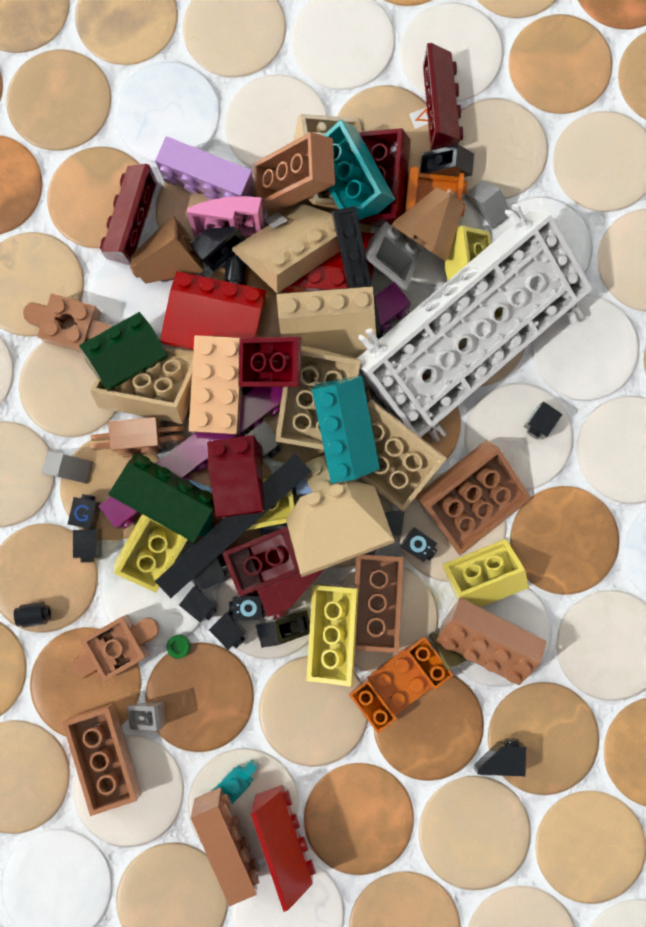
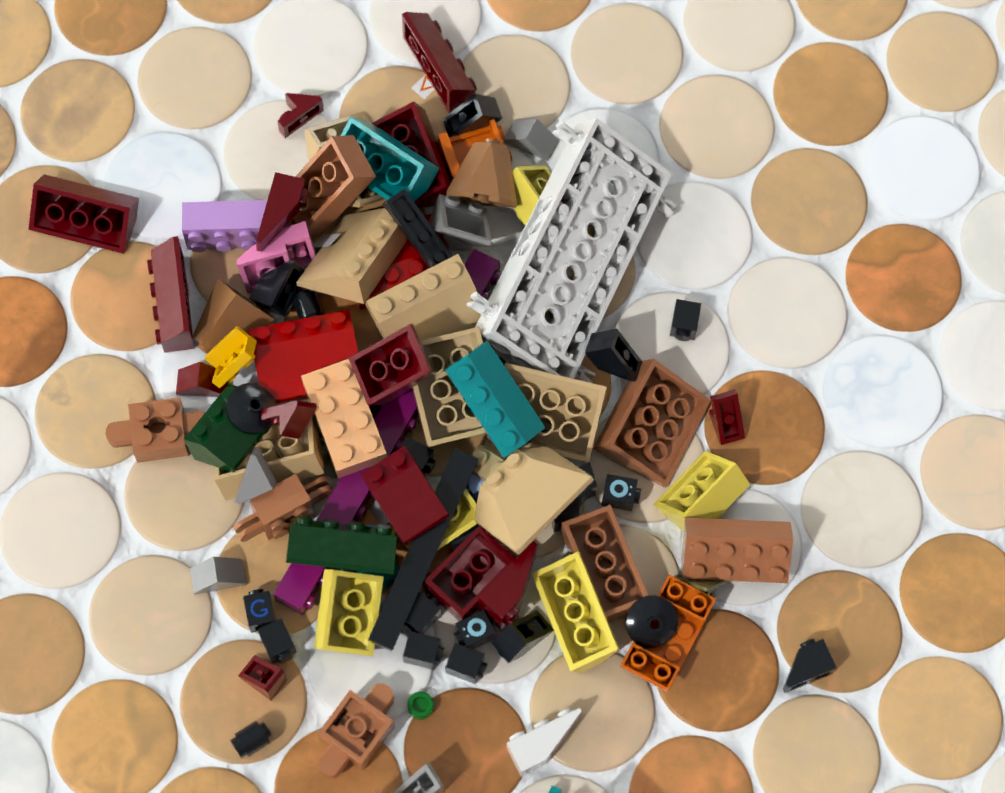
camera: 30 degrees left, 15 degrees down
(63, 568) = (263, 677): none -> dark red slope
(89, 108) = (82, 213): none -> dark red slope
(121, 407) = (256, 478): none -> light grey slope
(124, 297) = (197, 381): none -> dark red slope
(134, 342) = (240, 409): none -> black dish
(151, 289) = (231, 355): none -> yellow bracket
(170, 369) = (291, 417): none -> dark red slope
(244, 176) = (281, 207): none -> dark red slope
(253, 725) = (536, 747): none -> white slope
(309, 96) = (303, 110): none -> dark red slope
(388, 662) = (642, 613): none -> black dish
(466, 429) = (613, 354): none -> black slope
(537, 521) = (727, 417): none -> dark red slope

